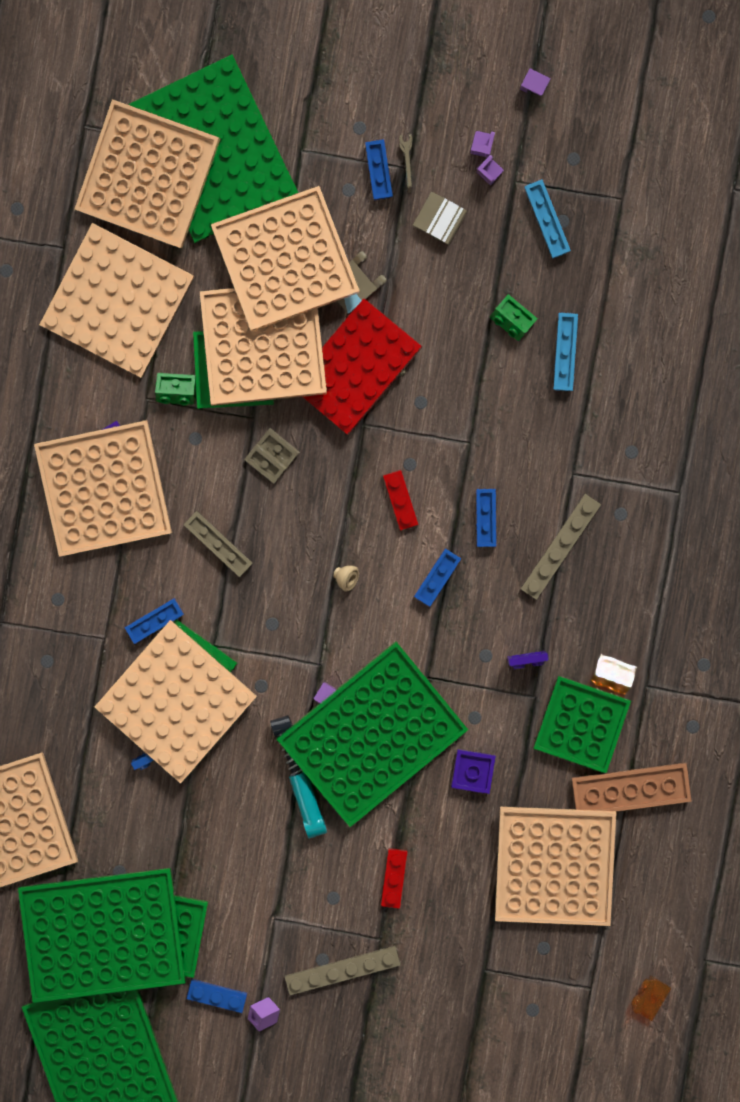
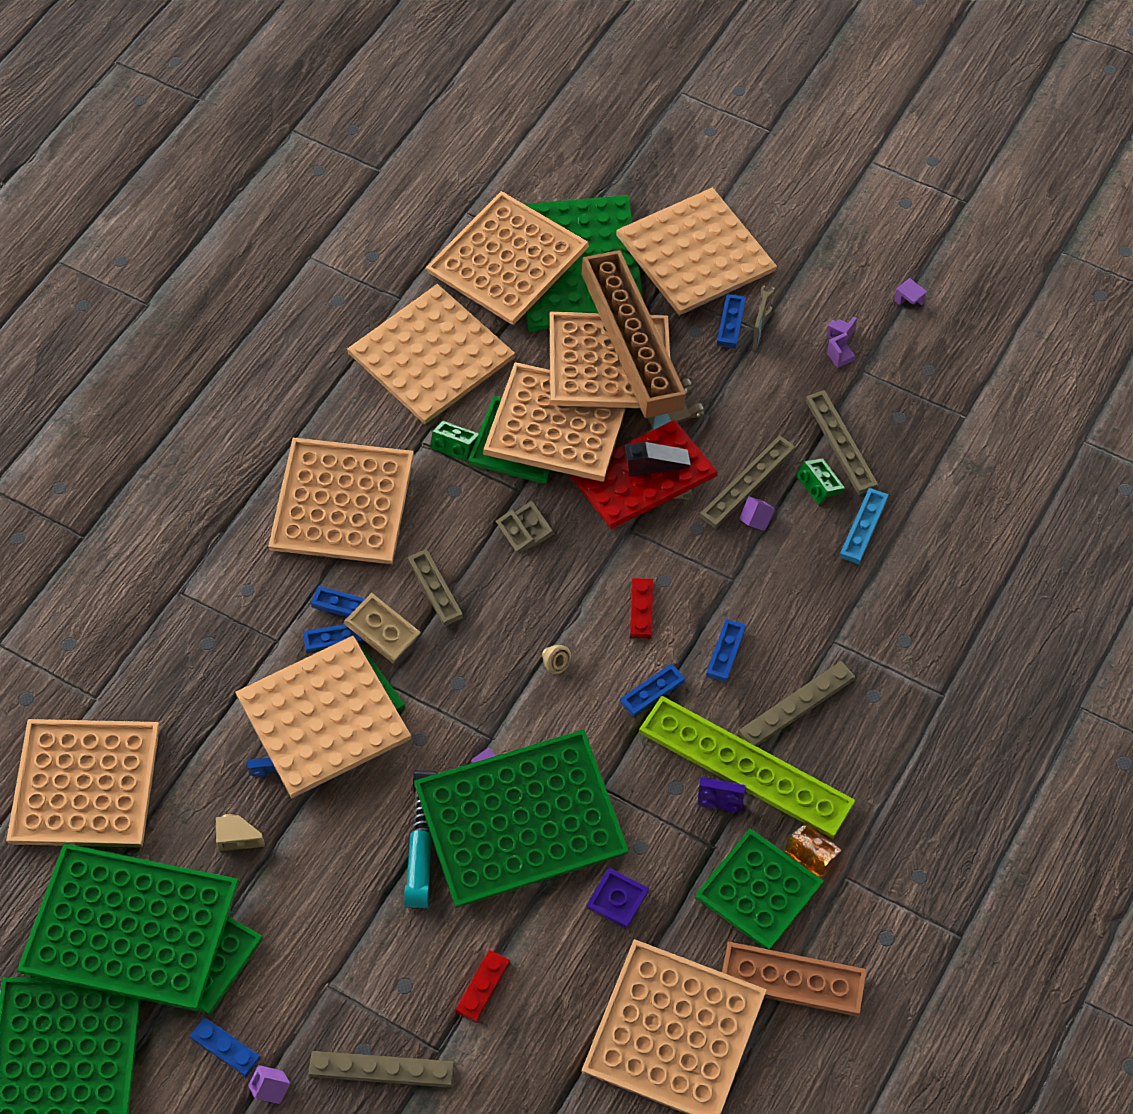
camera: 20 degrees right, 30 degrees down
(148, 587) = (335, 601): none -> blue plate
(148, 825) = (236, 834): none -> tan slope
(190, 601) = (382, 628): none -> tan tile
(297, 230) = (633, 334): none -> medium nougat brick
(319, 100) = (696, 251): none -> light nougat plate
(365, 355) = (655, 458): none -> black slope
(440, 218) = (776, 376): slope -> none
(450, 341) = (747, 482): none -> dark tan plate
(468, 372) = (756, 513): none -> medium lavender panel
(519, 270) = (841, 442): none -> dark tan plate
(537, 620) = (747, 765): none -> lime plate
(547, 219) = (884, 408): dark azure plate -> none

